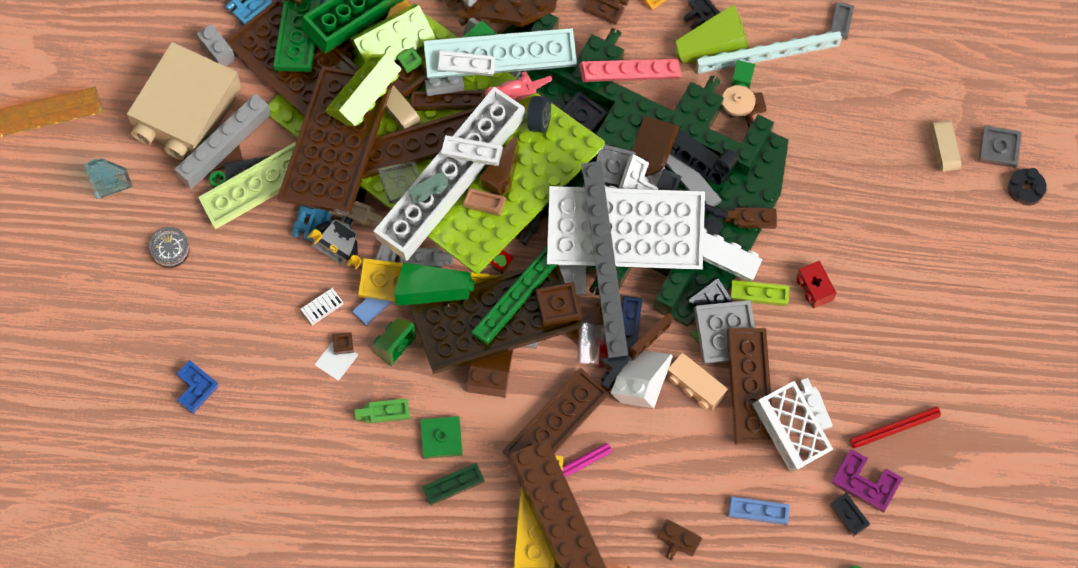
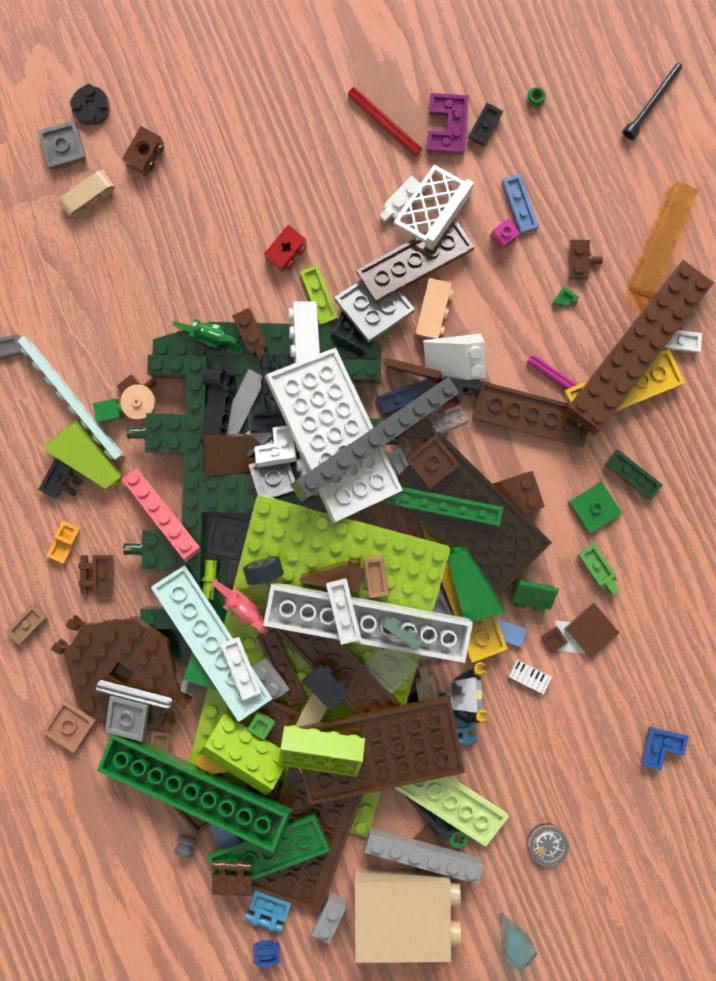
camera: 115 degrees left, 20 degrees up
(332, 379) = (591, 630): none -> reddish brown tile
(414, 119) = (325, 687): none -> black brick
(555, 85) = (209, 576): none -> lime pin
(649, 507) = (565, 298): none -> green tile
(735, 478) = (505, 234): none -> dark pink brick
(769, 181) = (208, 334): none -> green animal
(961, 198) = (143, 140): none -> reddish brown brick

